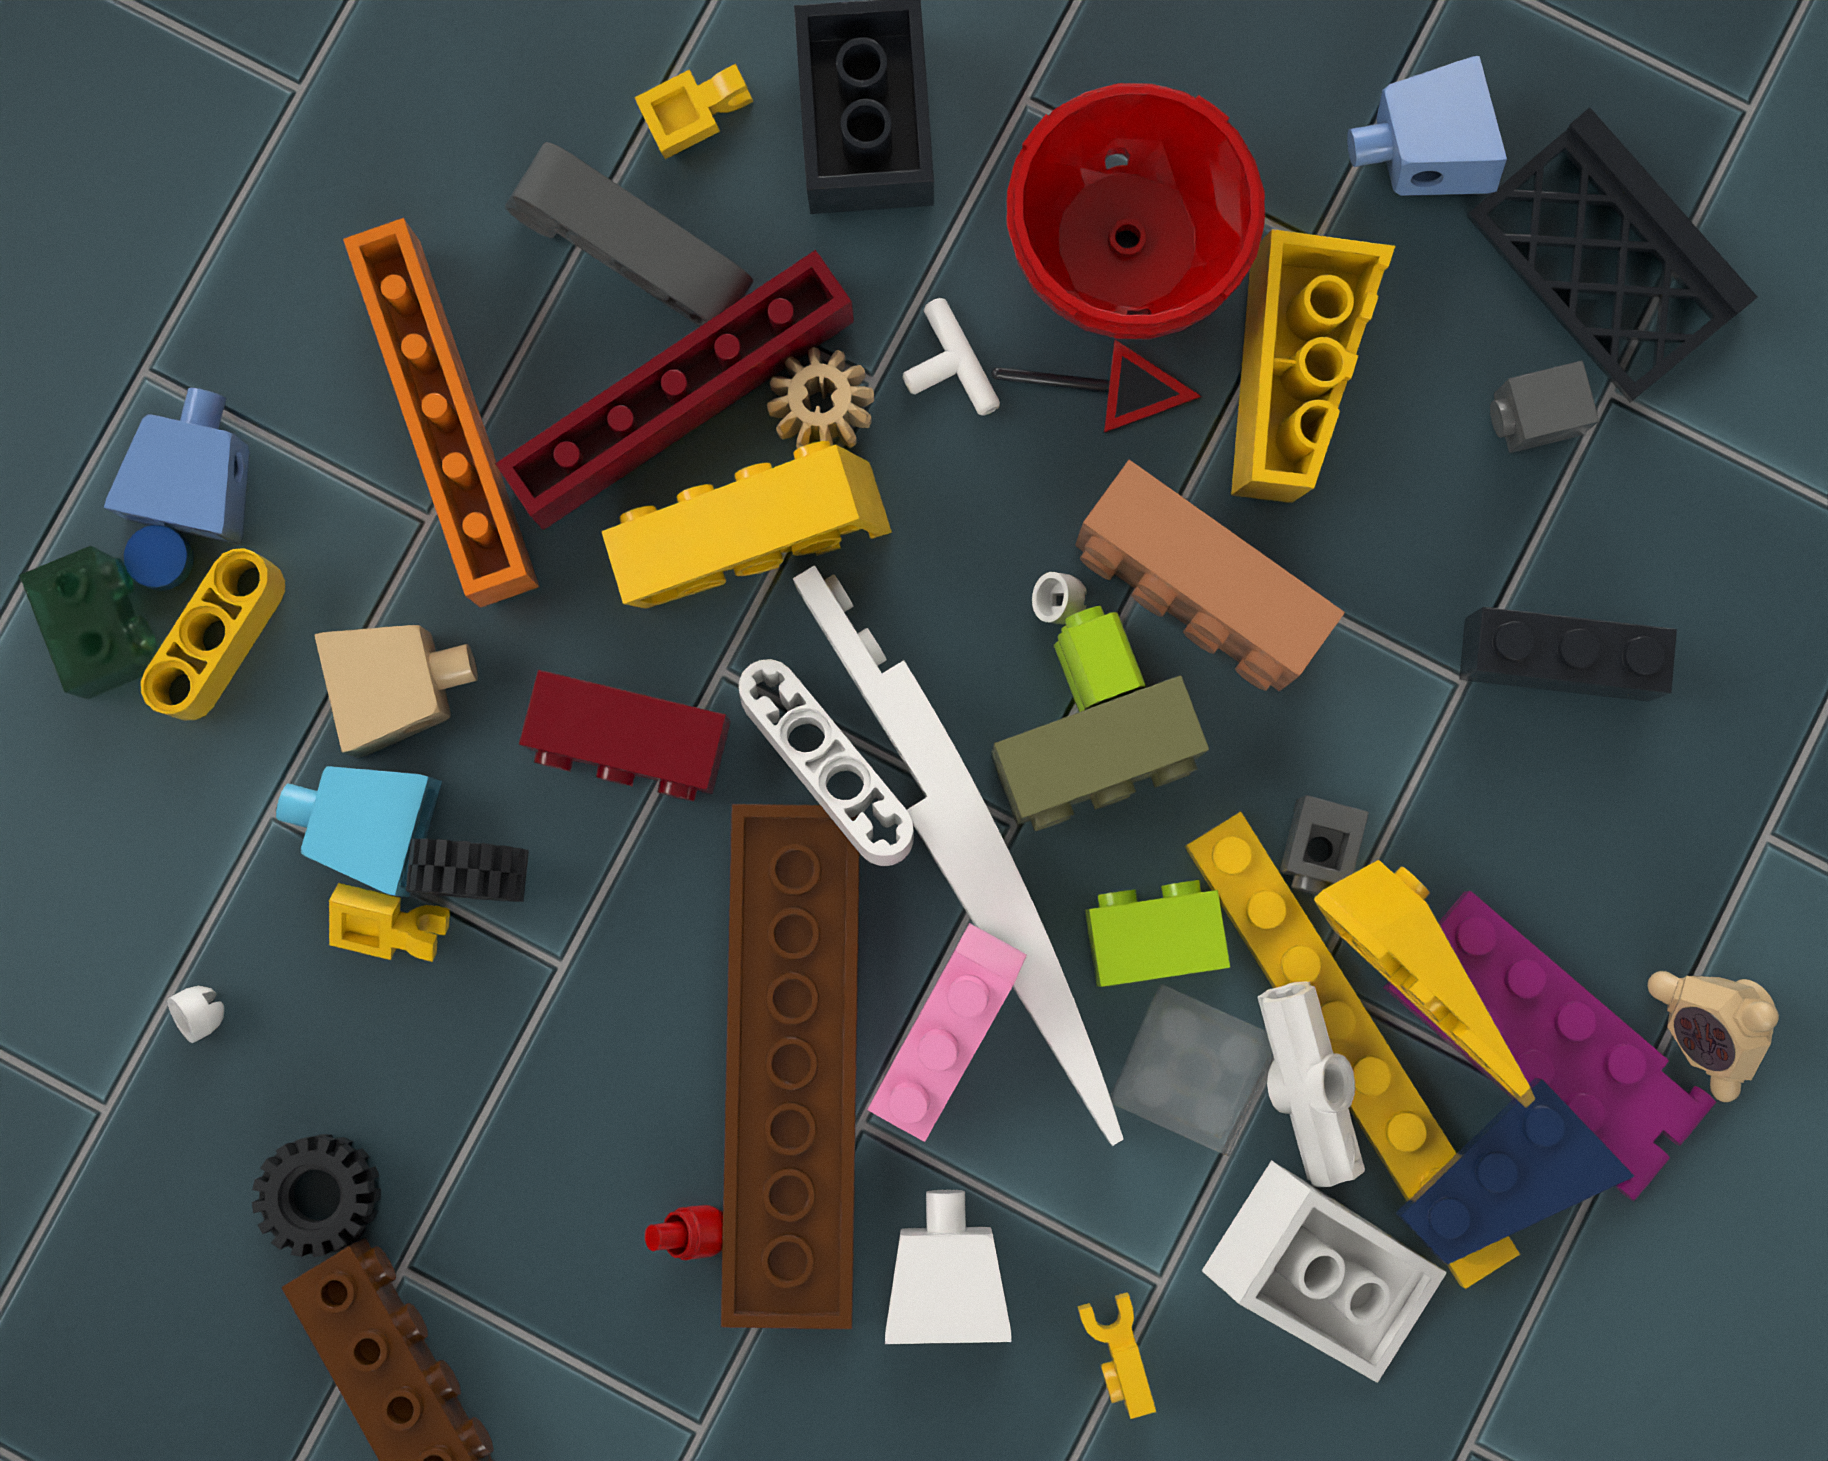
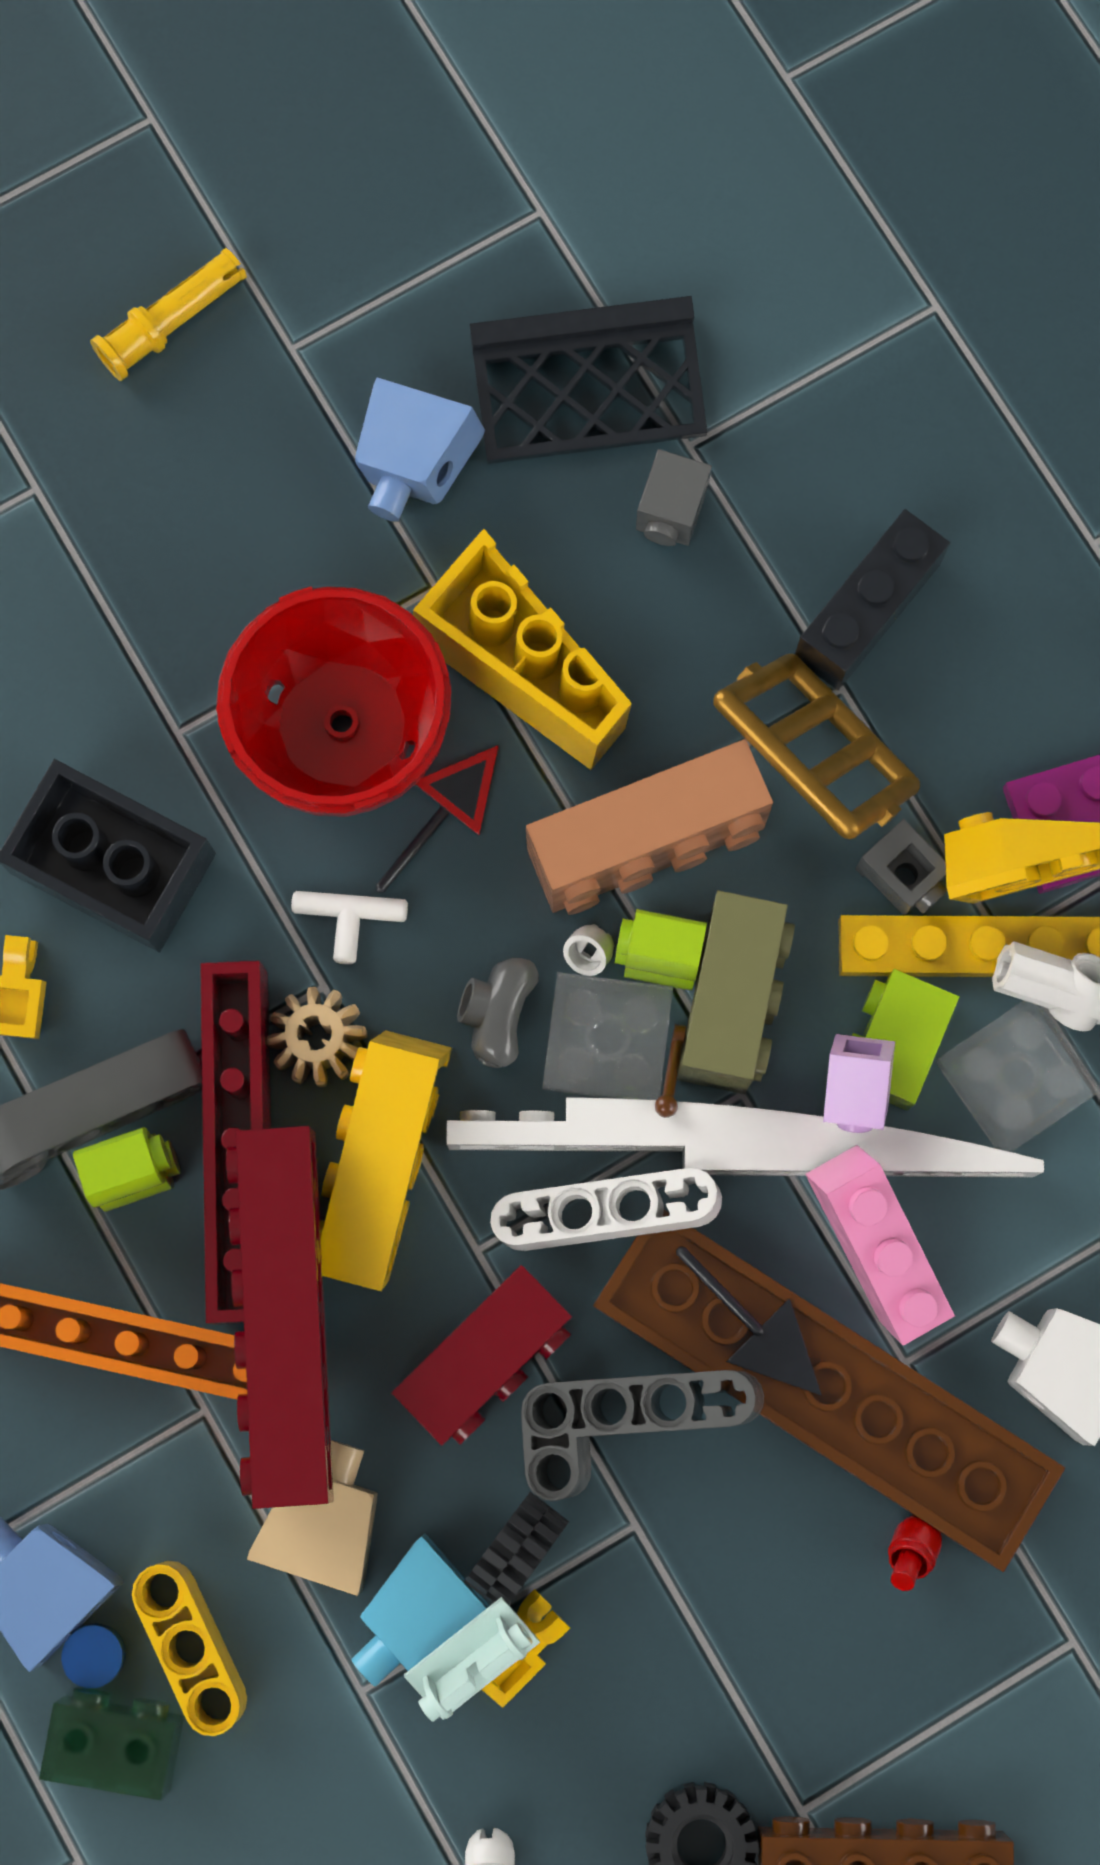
camera: 60 degrees left, 5 degrees down
(343, 887) = (470, 1660): none -> light aqua hinge
(537, 525) = (282, 1318): none -> dark red brick
(590, 306) = (126, 1168): none -> lime brick
(658, 908) = (642, 1415): none -> dark grey beam
(794, 993) = (774, 1347): none -> black piece
(949, 547) = (495, 1010): none -> dark grey piece
(953, 755) = (666, 1104): none -> reddish brown hinge
(987, 666) = (607, 1037): none -> clear plate
(1084, 920) = (859, 1083): none -> lavender brick
(1343, 702) = (813, 782): none -> pearl gold bar

